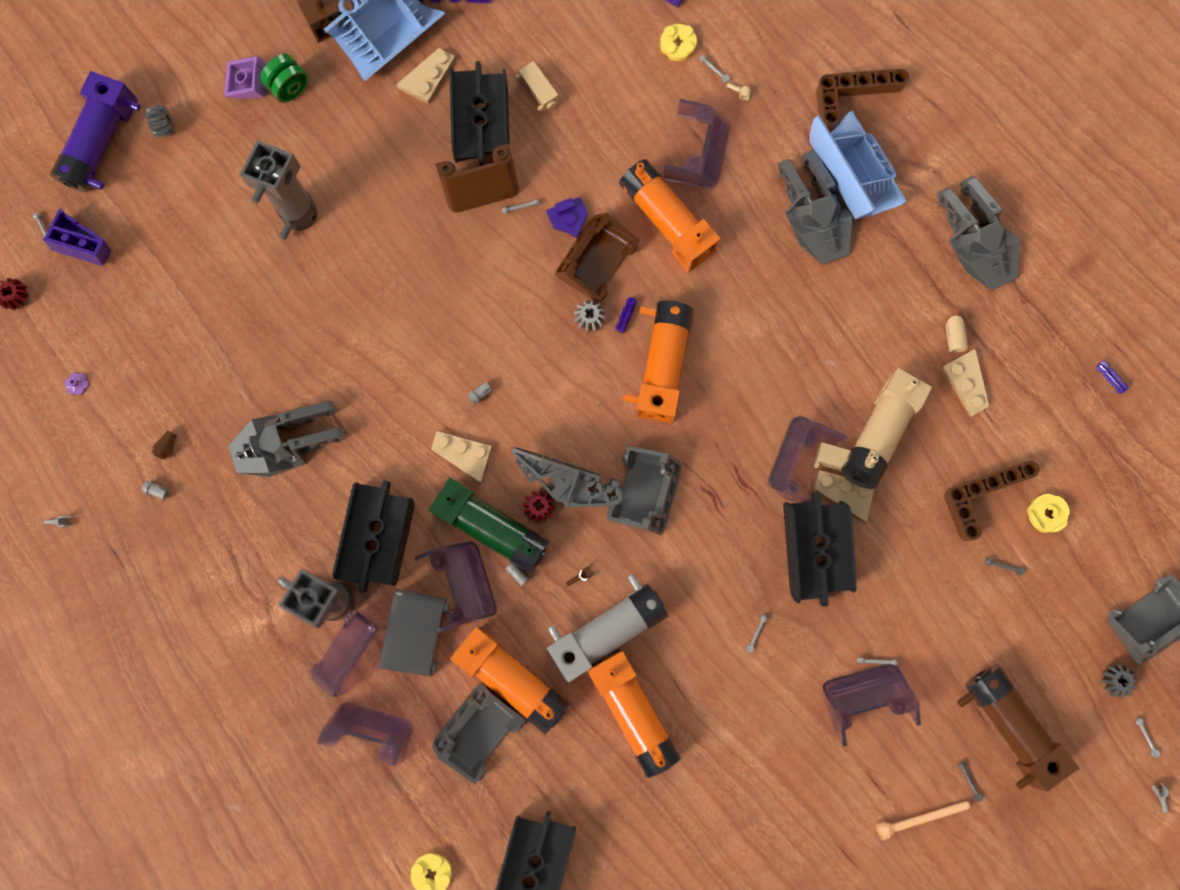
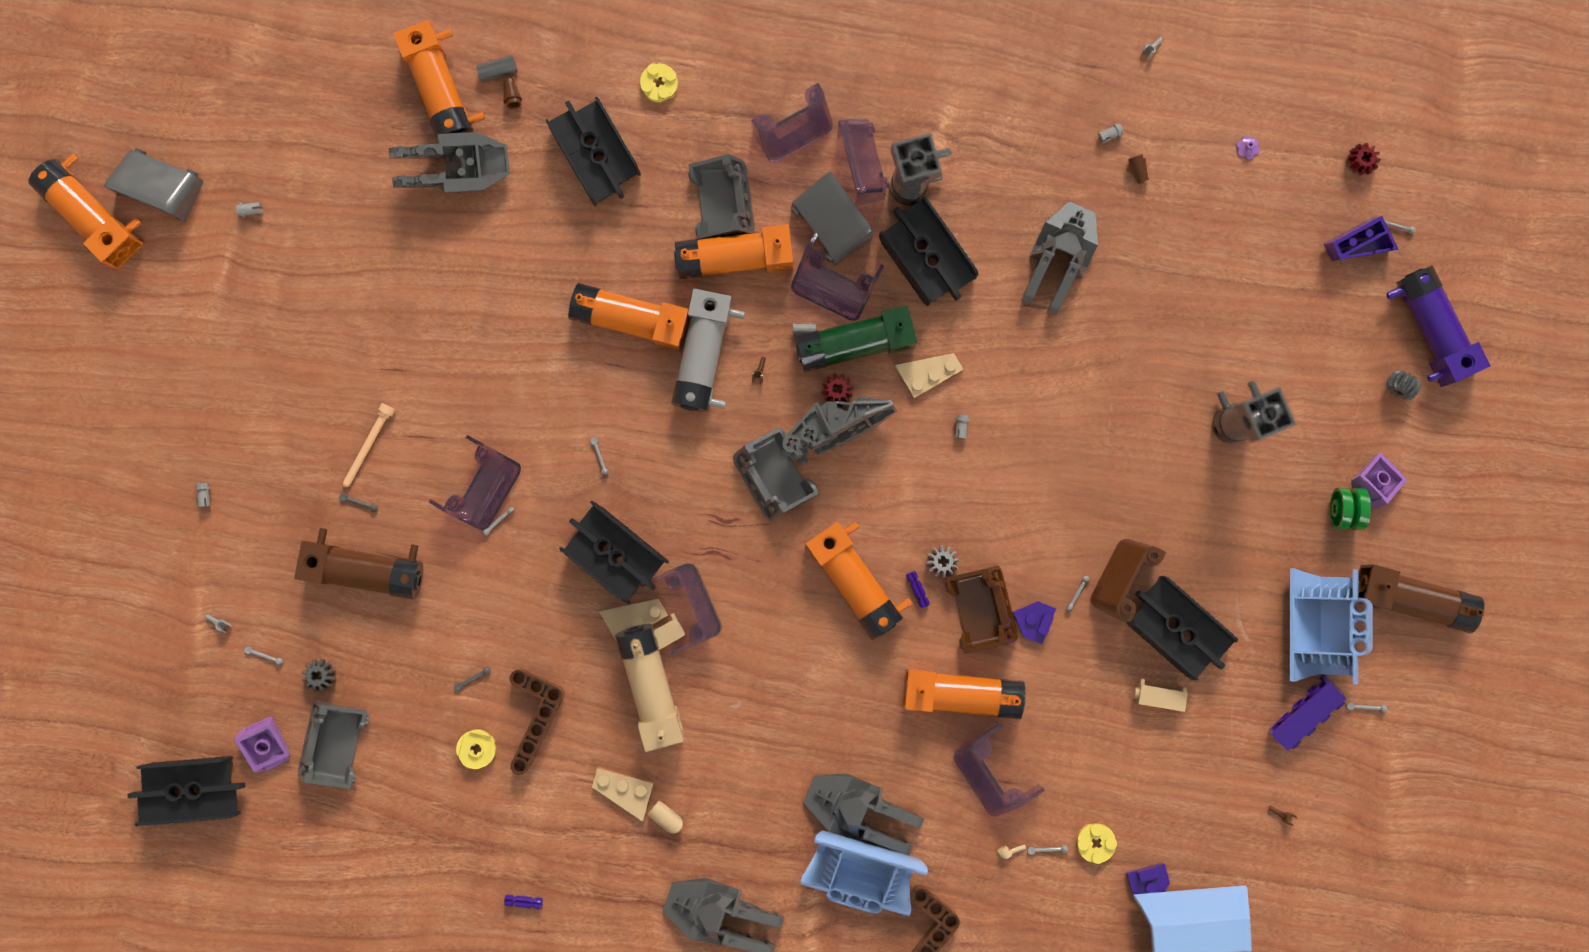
camera: 130 degrees right, 5 degrees up
(428, 76) = (1251, 622): tan wing -> none

